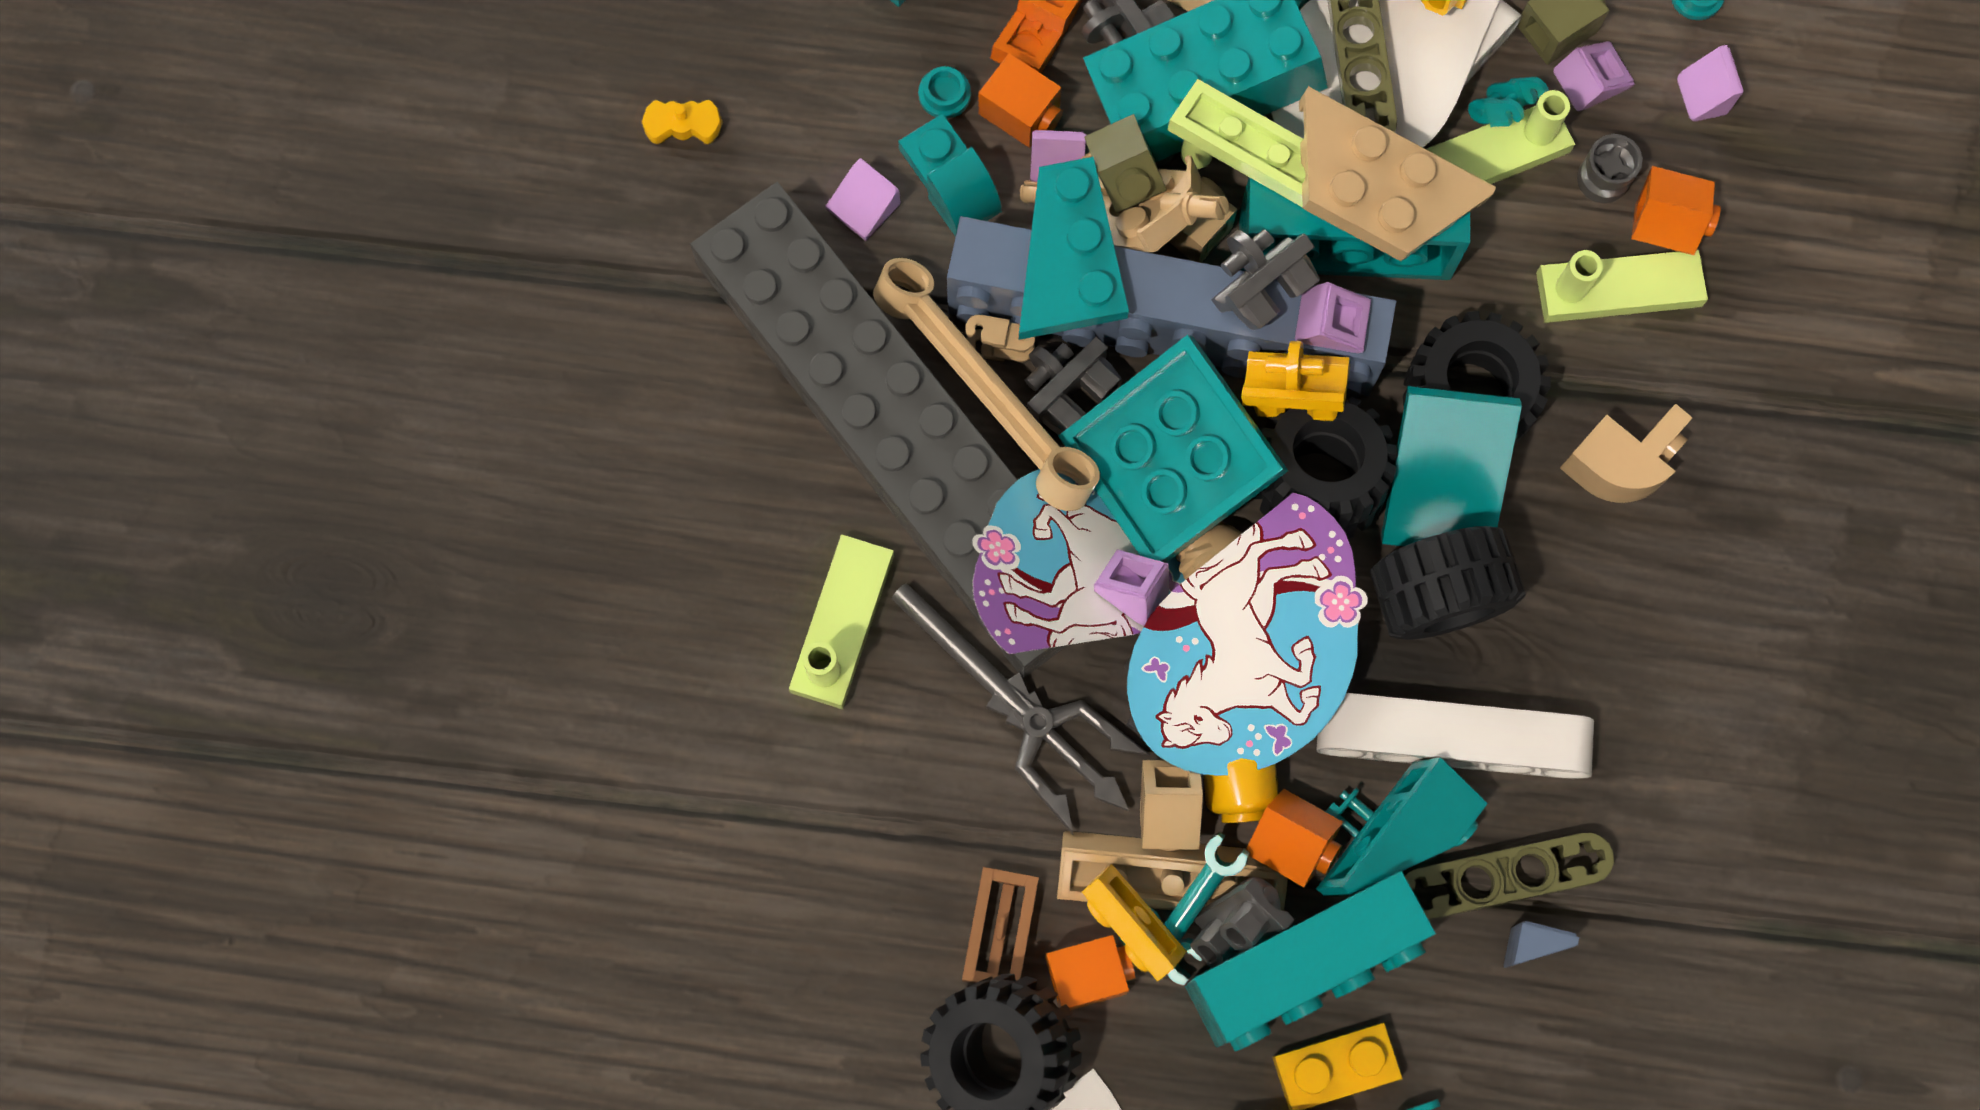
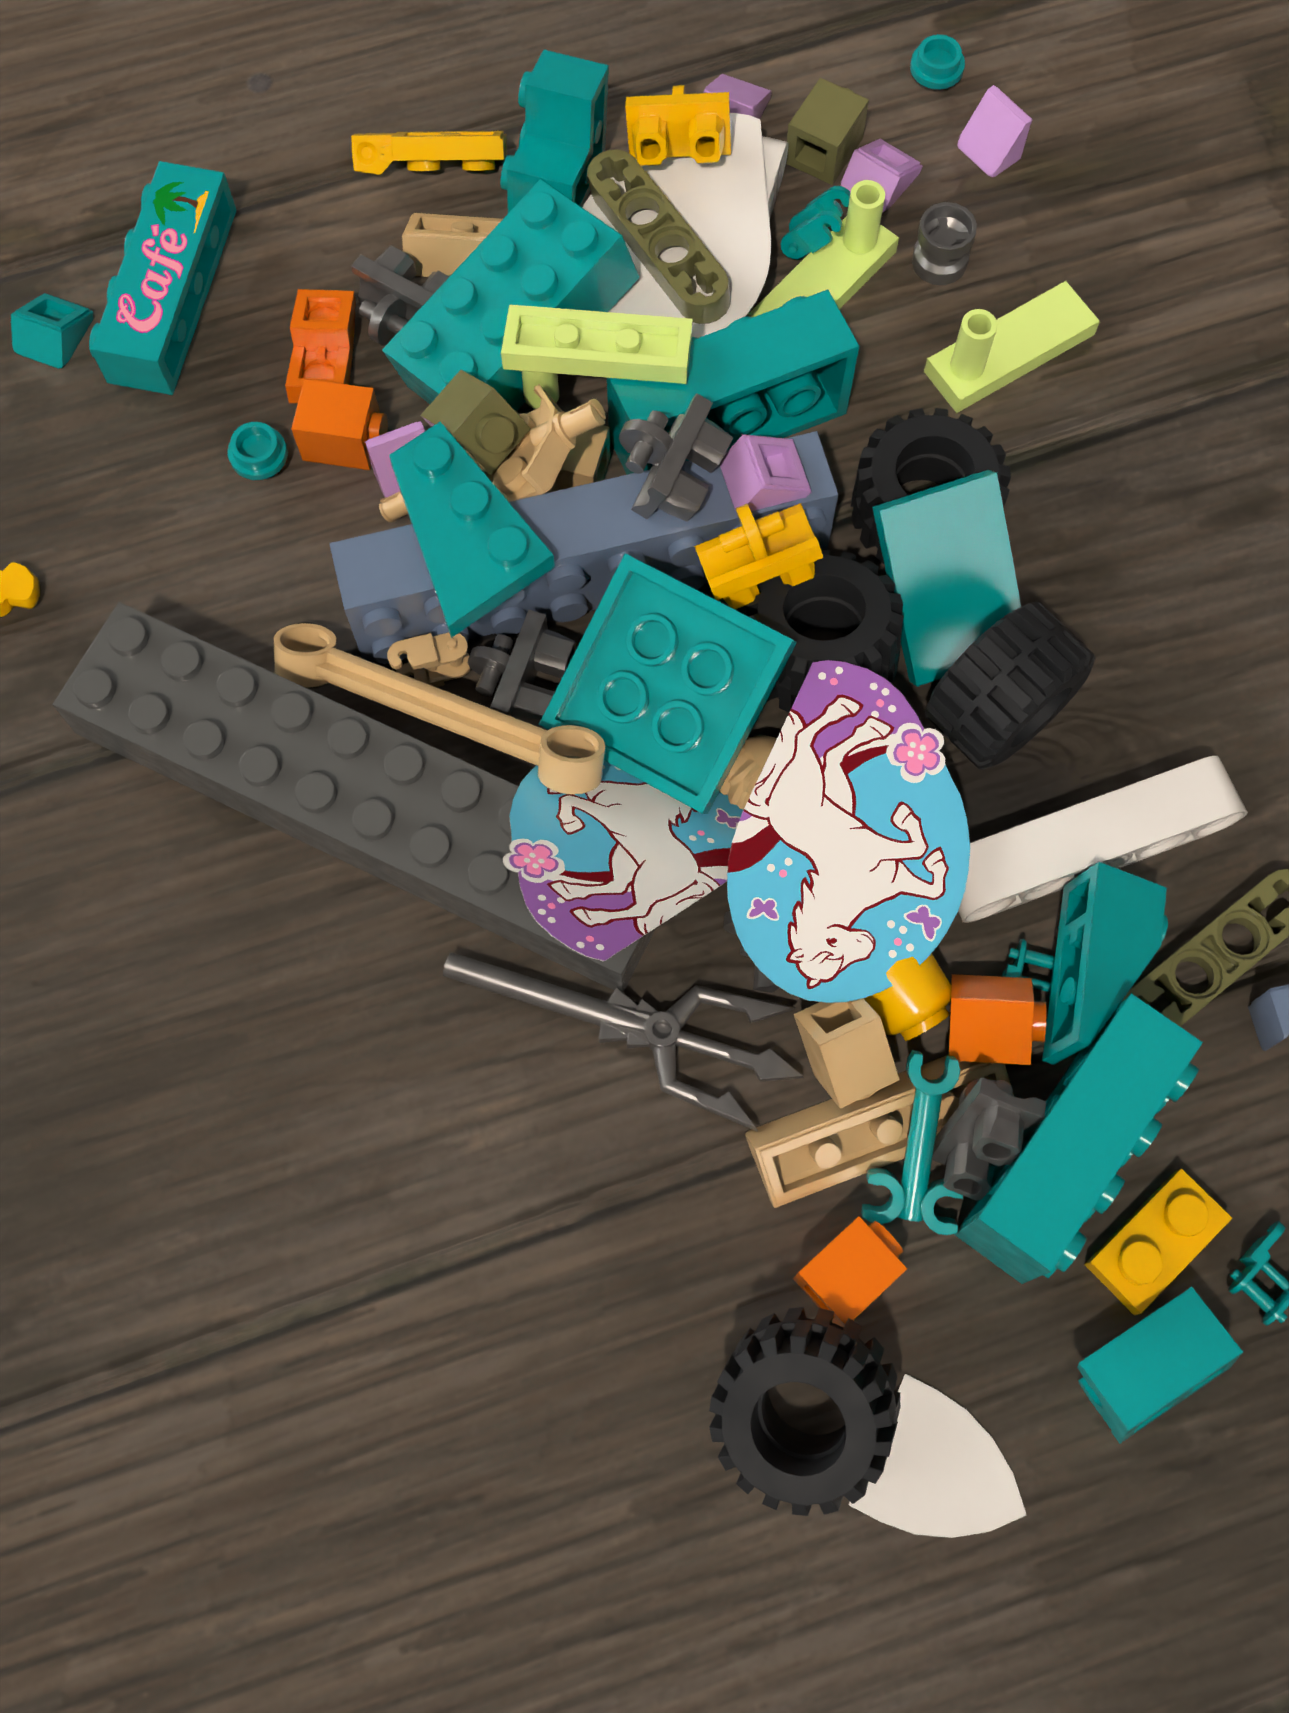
camera: 25 degrees left, 5 degrees down
(841, 621) = (401, 1026): yellowish green piece -> none
(864, 200) = (222, 588): lavender slope -> none
(951, 173) = (297, 521): teal brick -> none
(1009, 880) = (715, 1213): medium nougat tile -> none
(1134, 584) = (695, 834): lavender slope -> none
(1146, 938) = (898, 1203): yellow plate -> none
(1378, 180) = (740, 320): tan wing -> none
(1620, 466) = (1107, 505): tan brick -> none
(1675, 211) = (1026, 252): orange brick -> none

